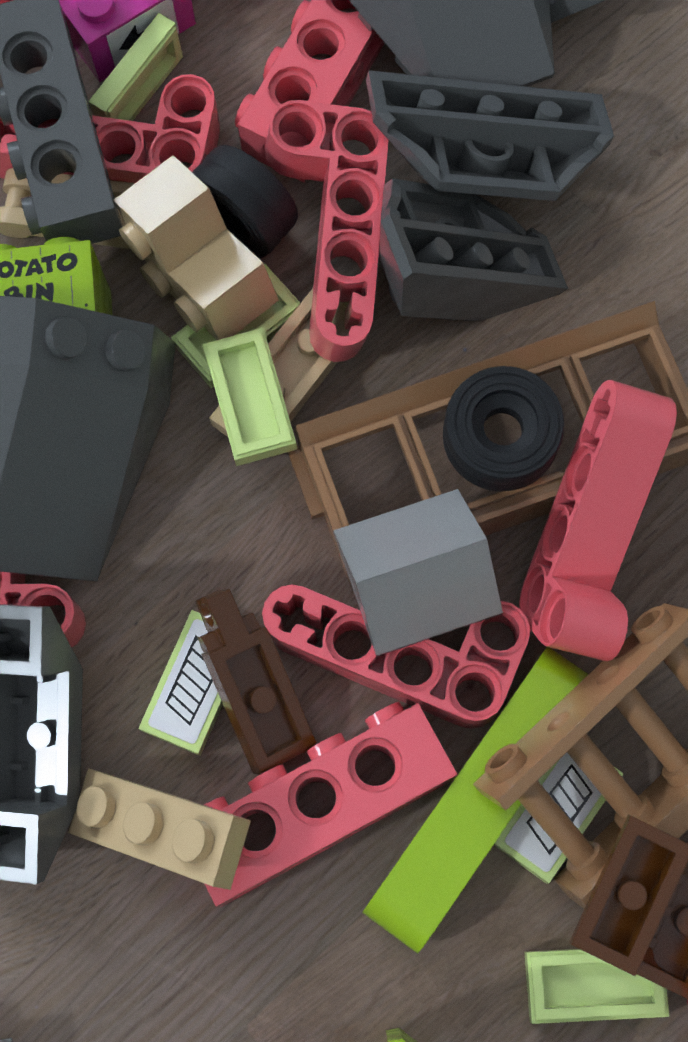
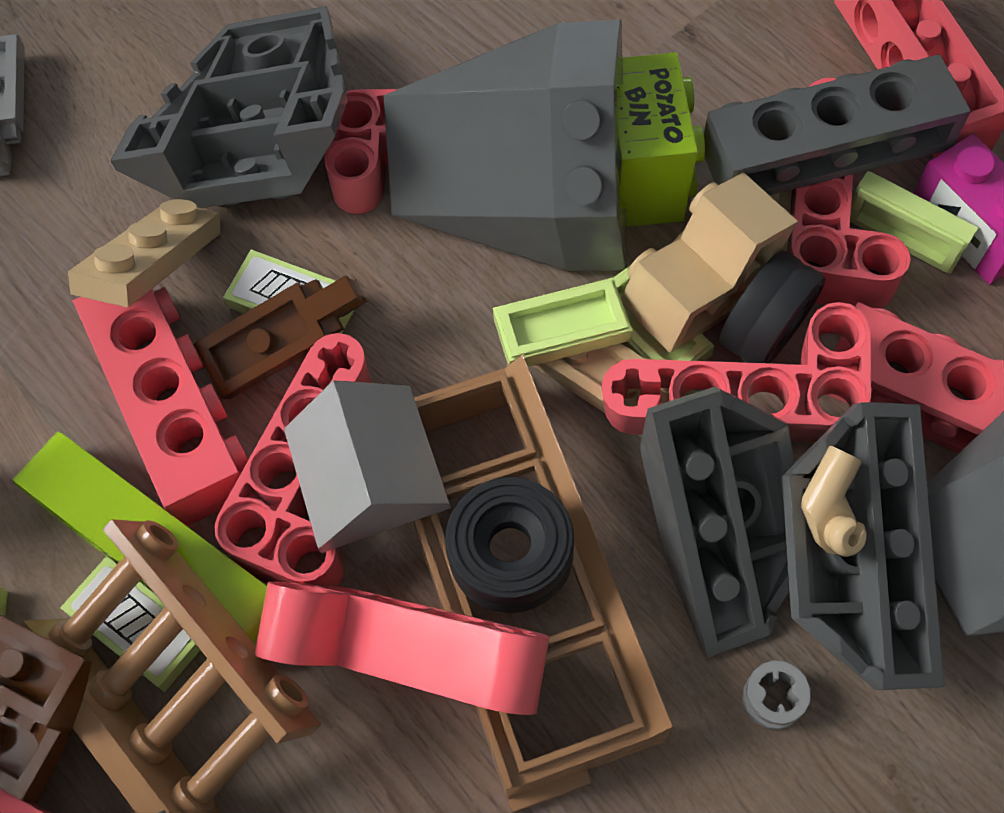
camera: 90 degrees right, 10 degrees down
(469, 153) = (827, 507): none -> tan arm
(596, 217) = (797, 695): none -> light grey bush

